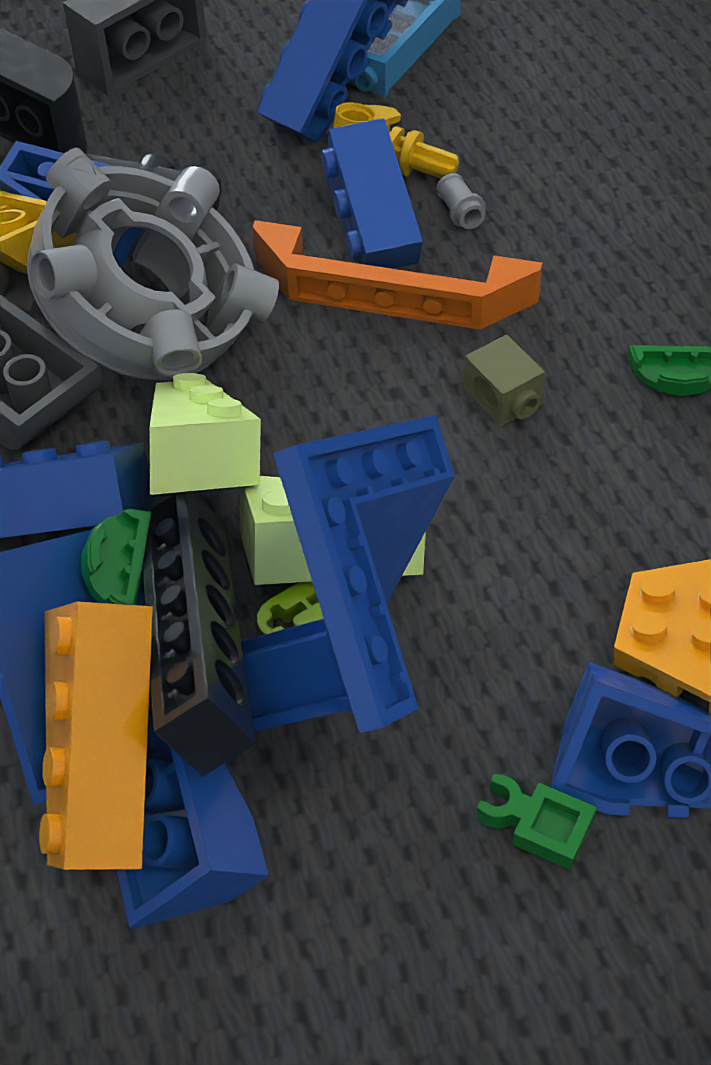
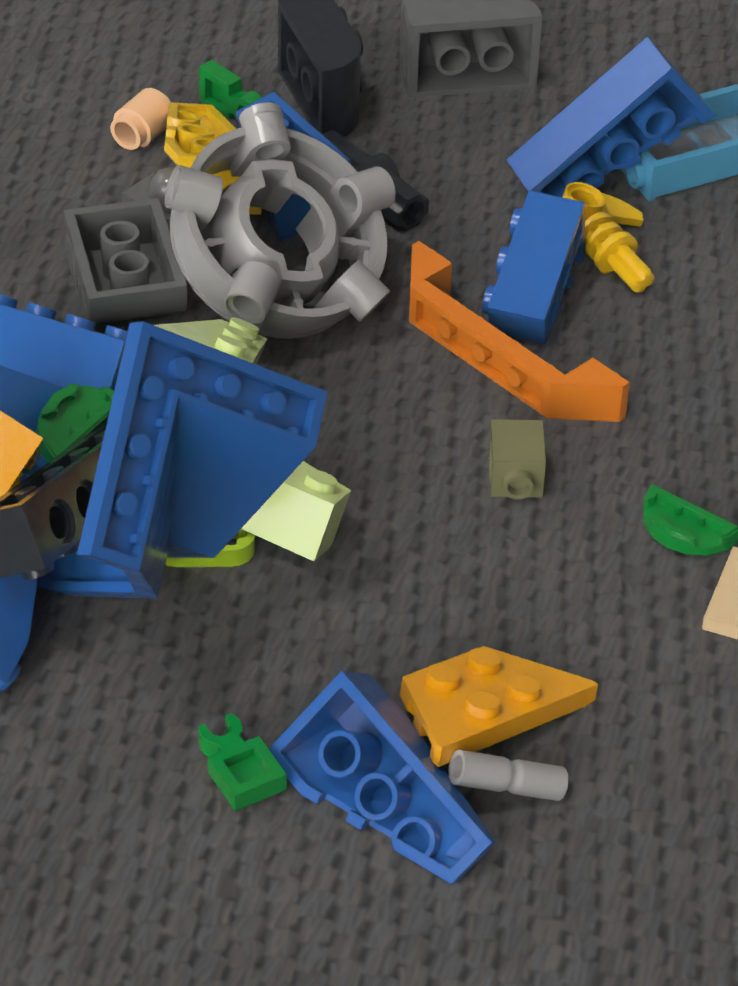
camera: 30 degrees right, 10 degrees down
(464, 206) = (623, 315): light grey pin -> none

